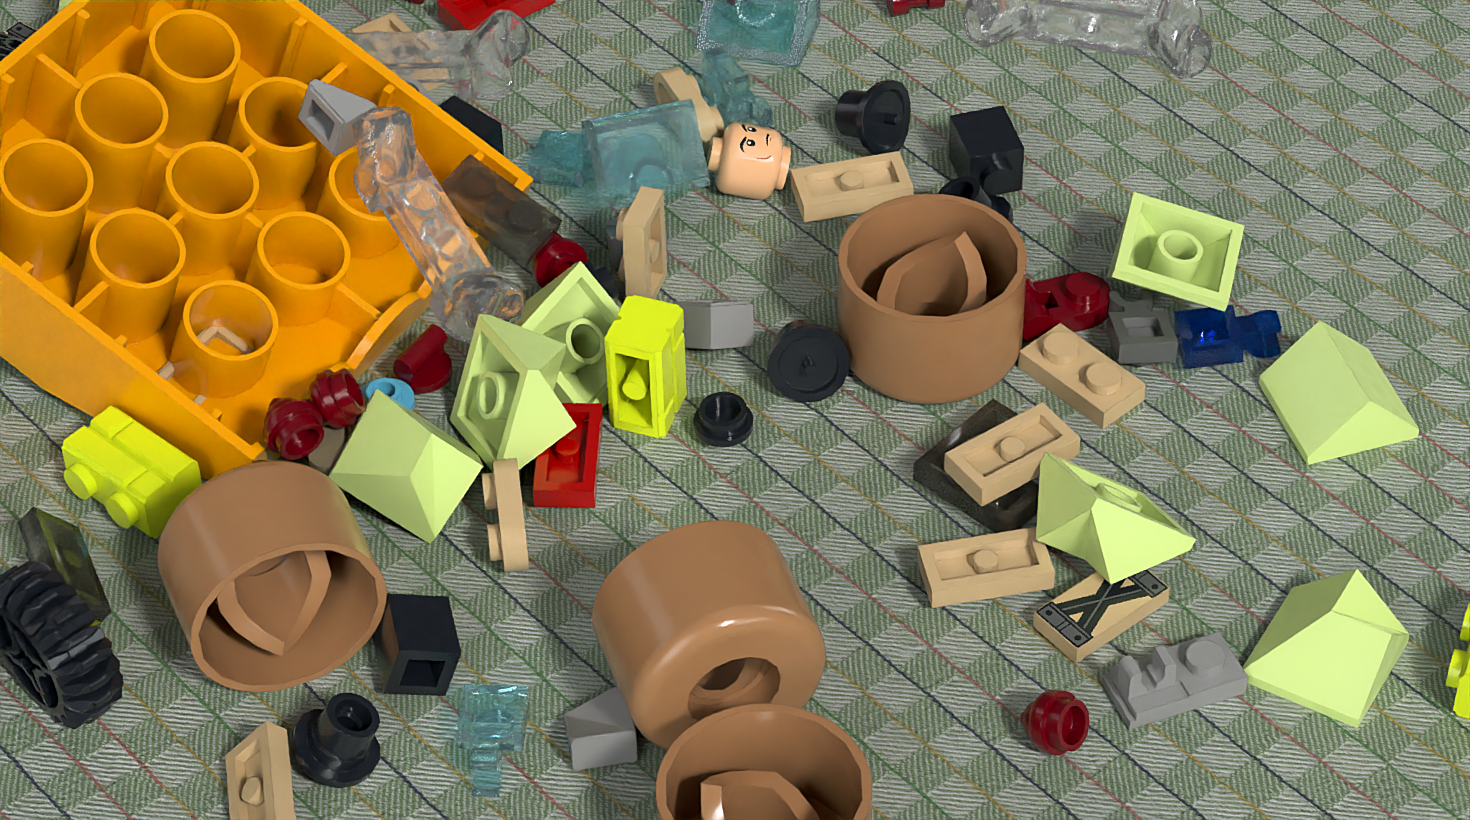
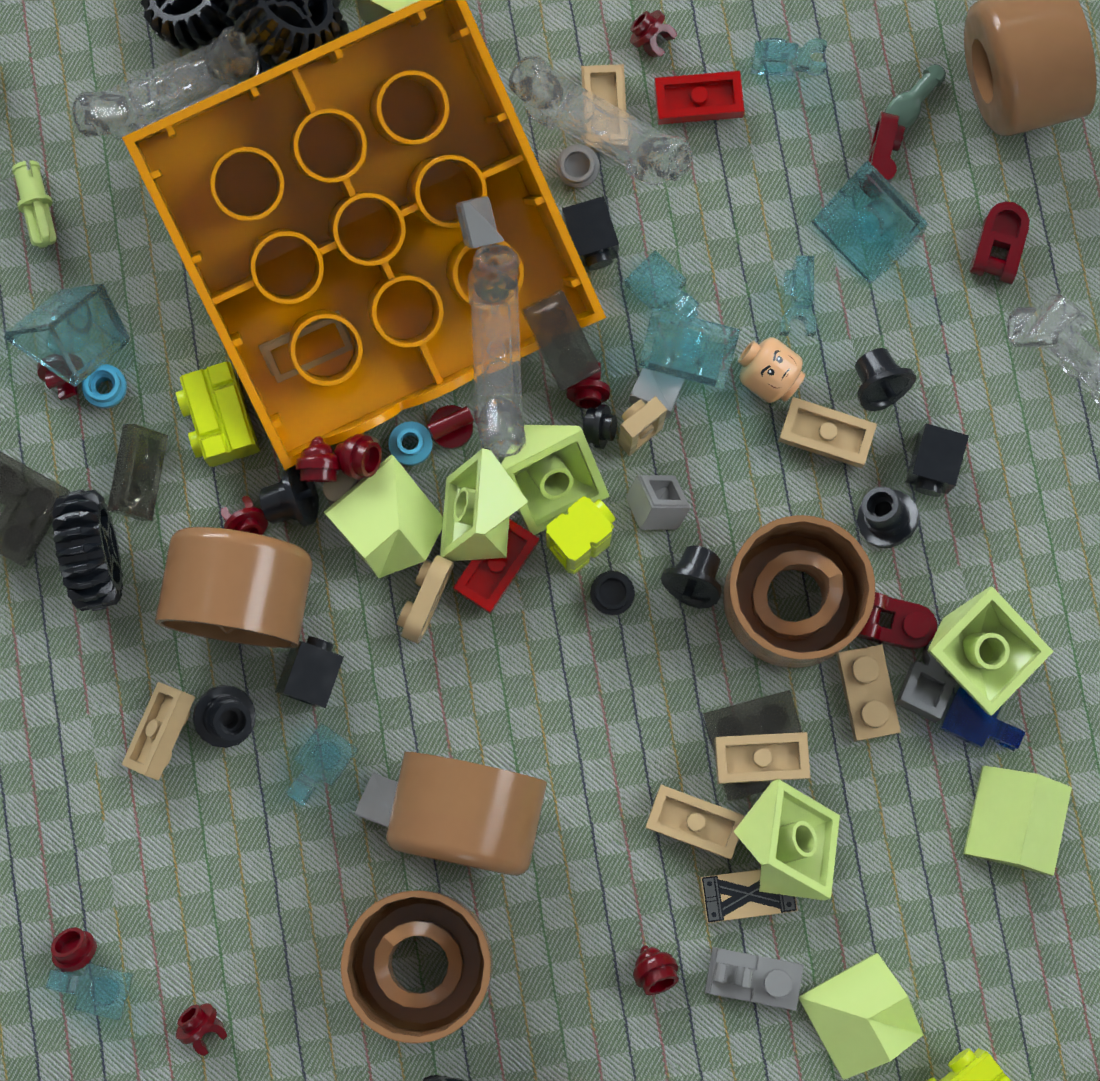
camera: 30 degrees right, 35 degrees up
(674, 86) = (760, 309): tan plate -> none

